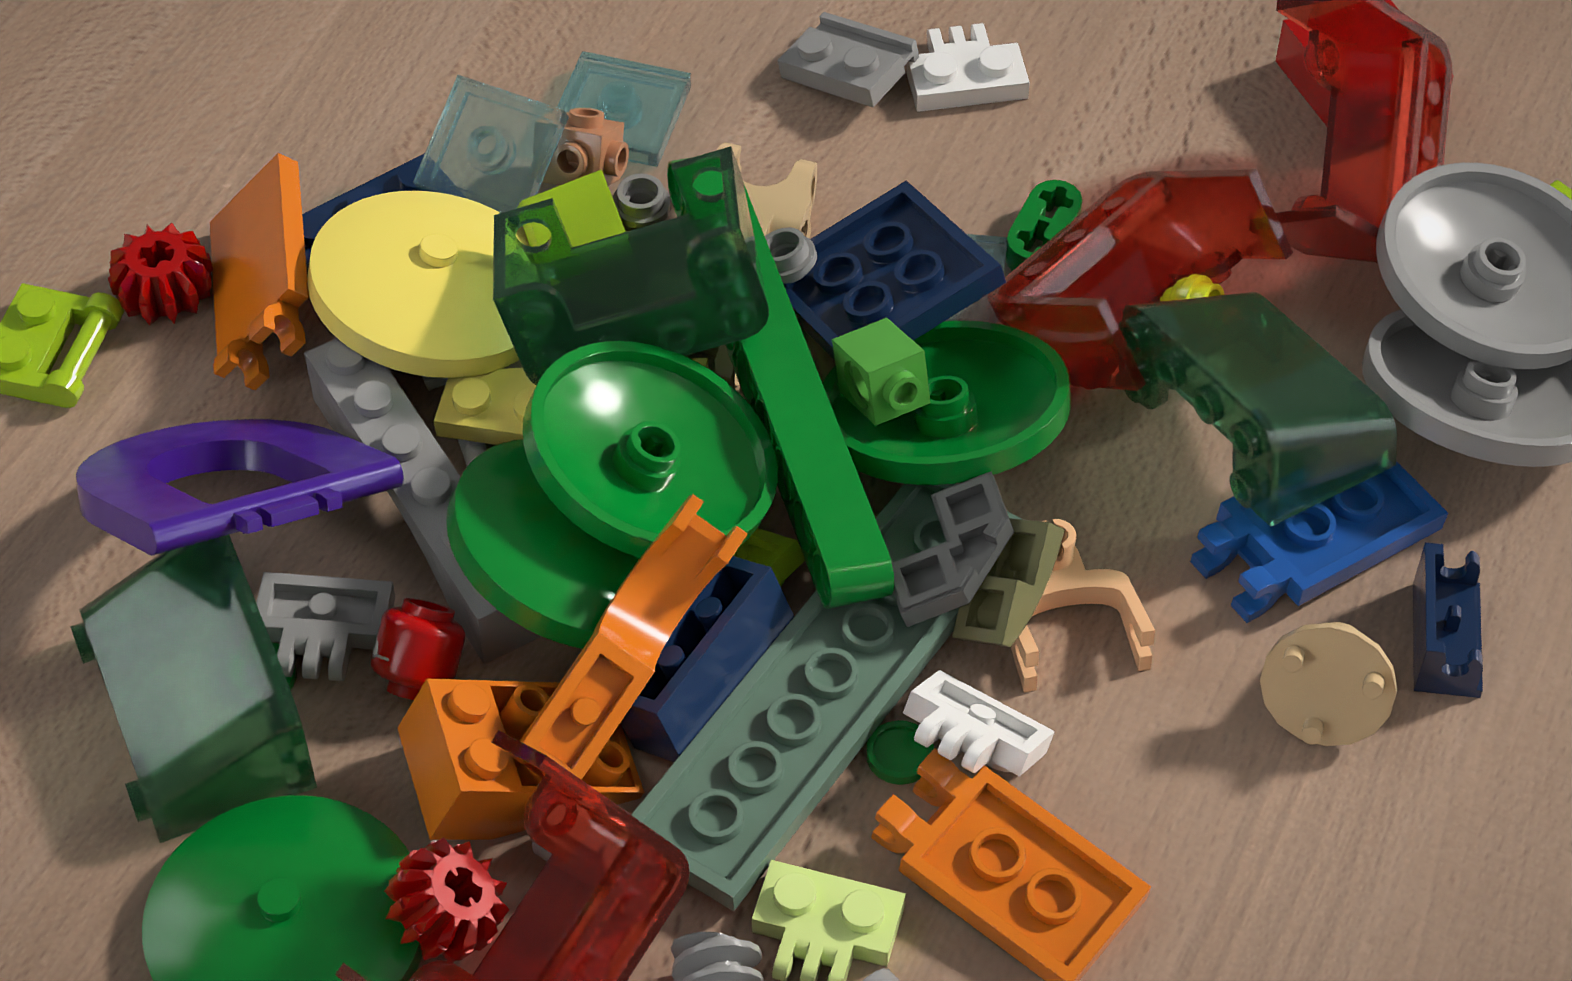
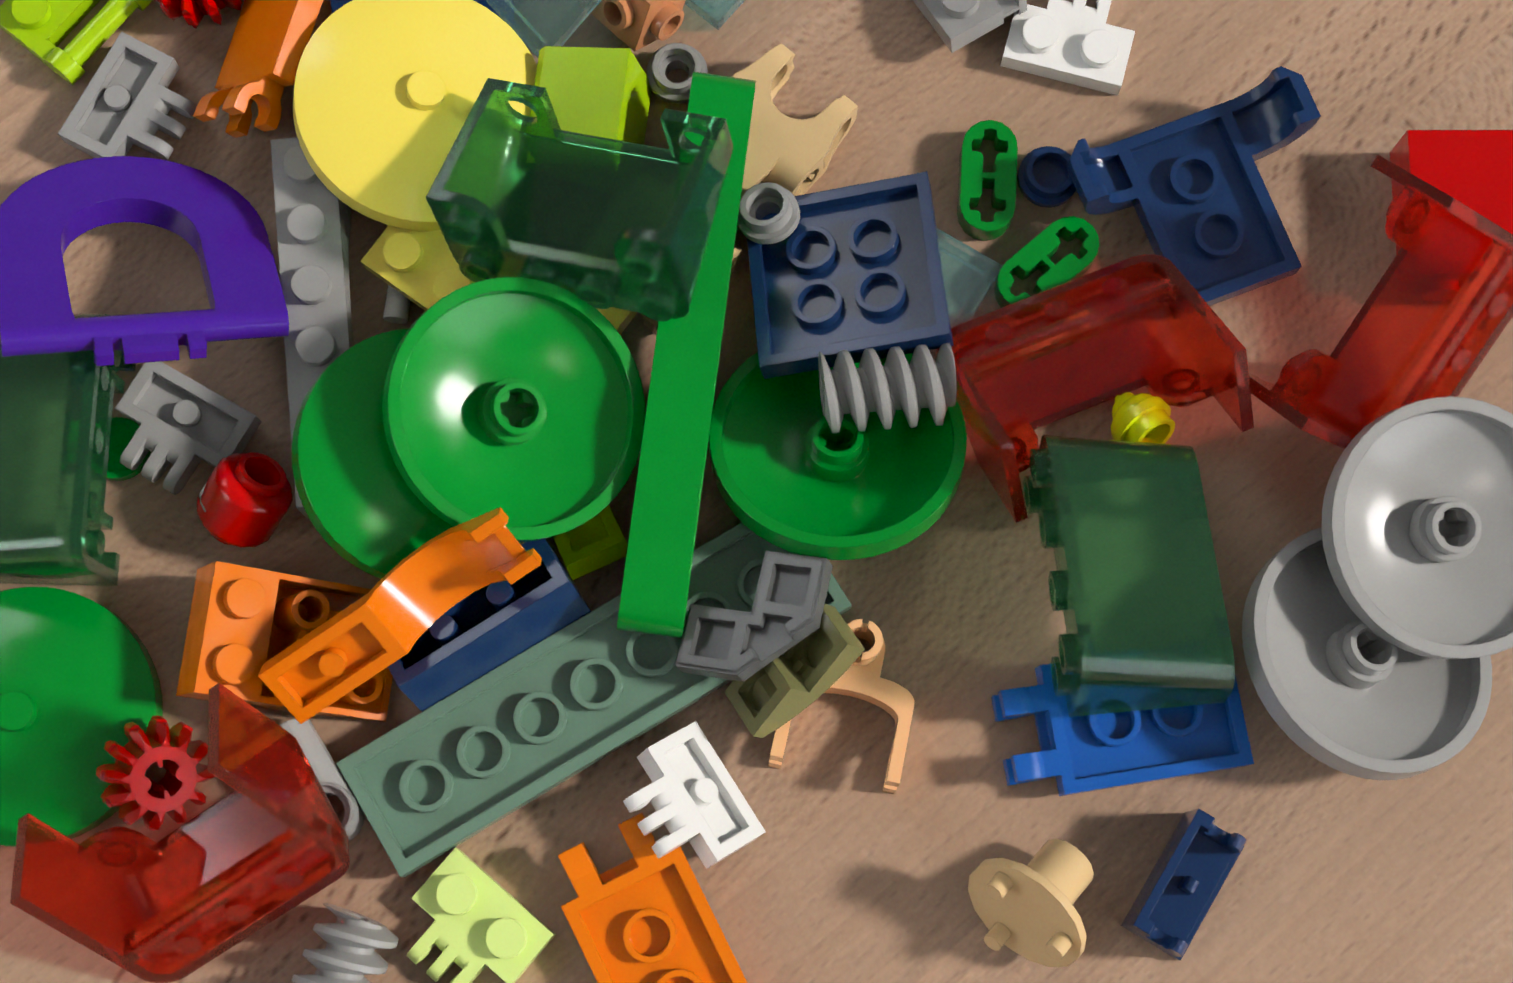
camera: 25 degrees right, 25 degrees up
(144, 391) = (128, 103): none -> light grey hinge
(881, 371) = (782, 399): bright green brick -> none
(895, 754) = (618, 778): green piece -> none
(966, 184) = (1001, 180): none -> green beam
(971, 324) = (888, 386): none -> light grey piece
(1007, 164) = (1045, 177): none -> dark blue plate
(1134, 116) = (1202, 189): none -> dark blue piece

